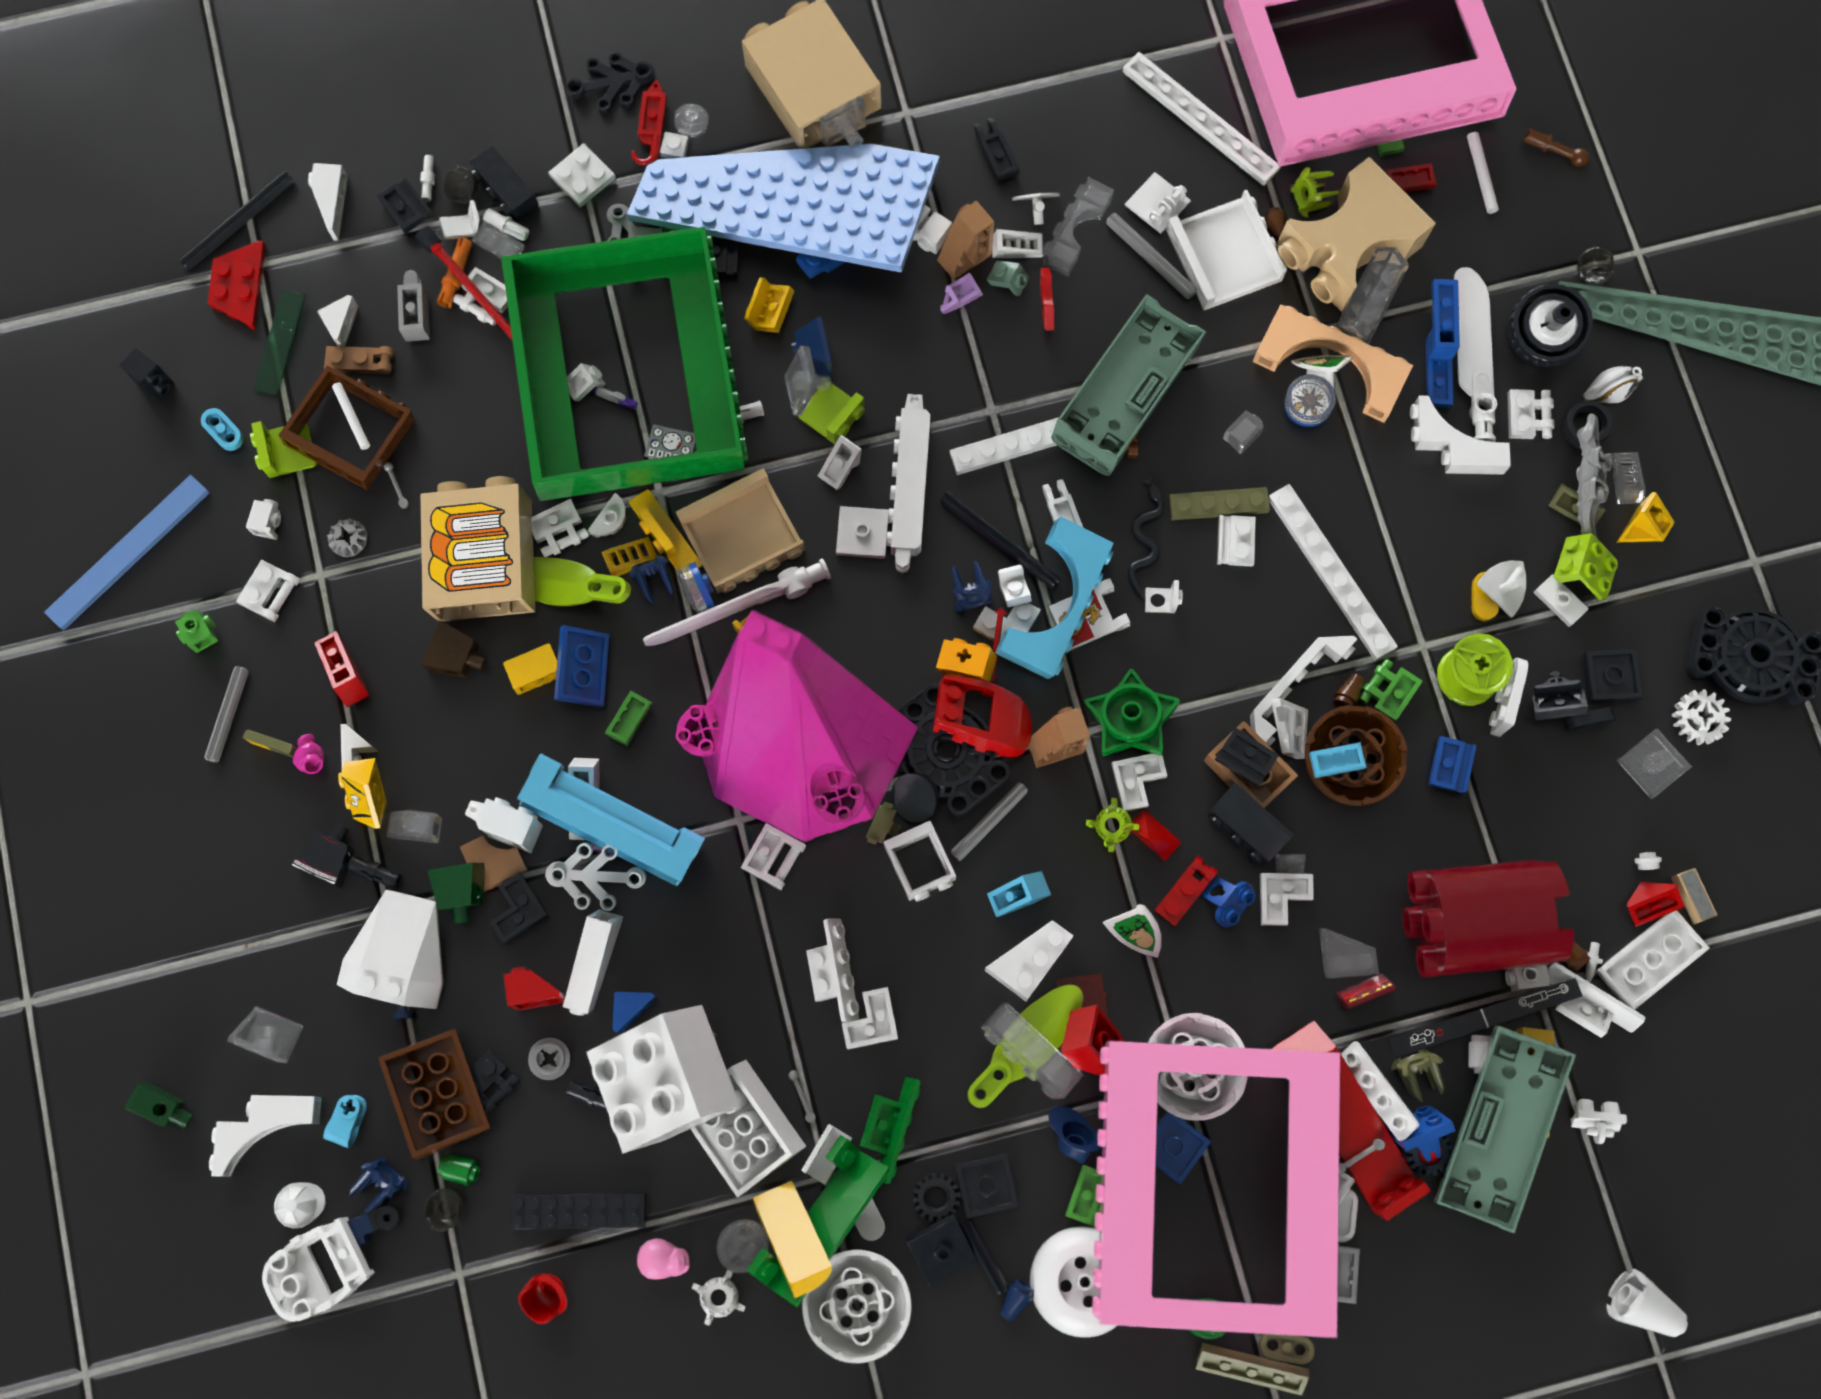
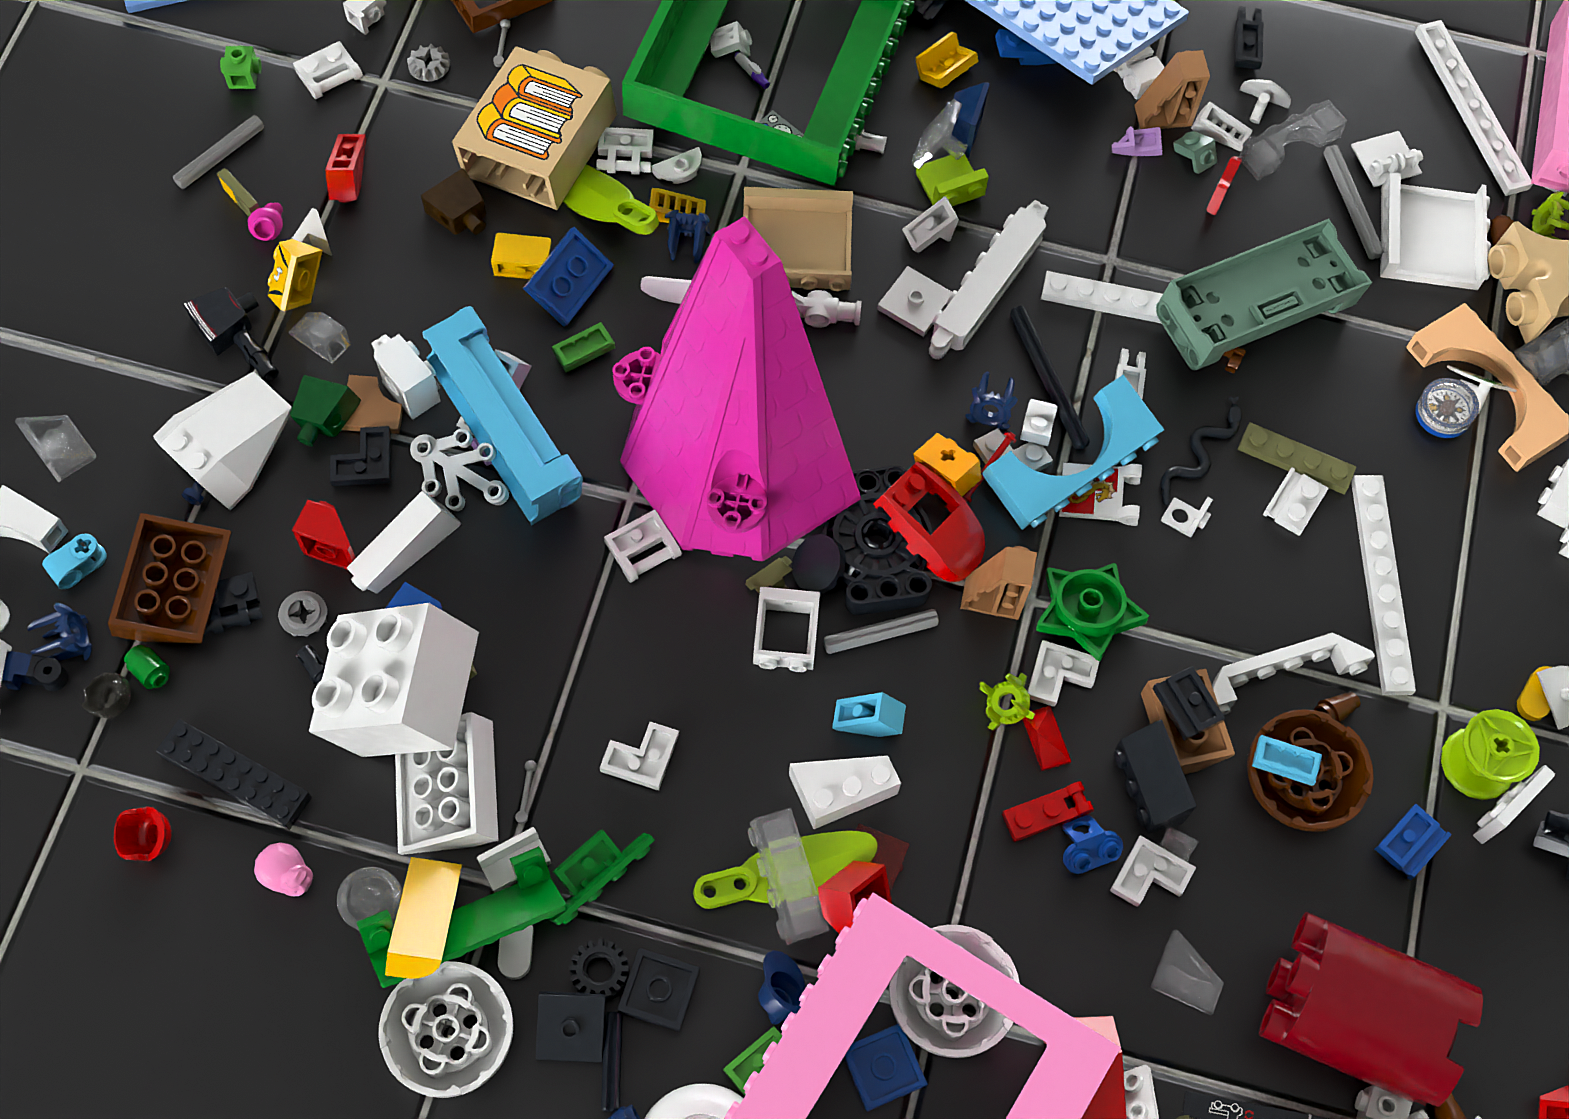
camera: 25 degrees right, 10 degrees down
(666, 535) = (721, 189): yellow bracket -> none
(730, 1290) = (298, 950): white piece -> none
(832, 972) = (633, 685): white bracket -> none
(1137, 930) = (972, 819): shield -> none
(1244, 431) = (1360, 402): clear brick -> none
(1291, 727) = (1255, 705): white wing -> none
(1365, 991) = (1187, 1025): slope -> none
(1396, 695) = (1390, 737): bright green plate -> none

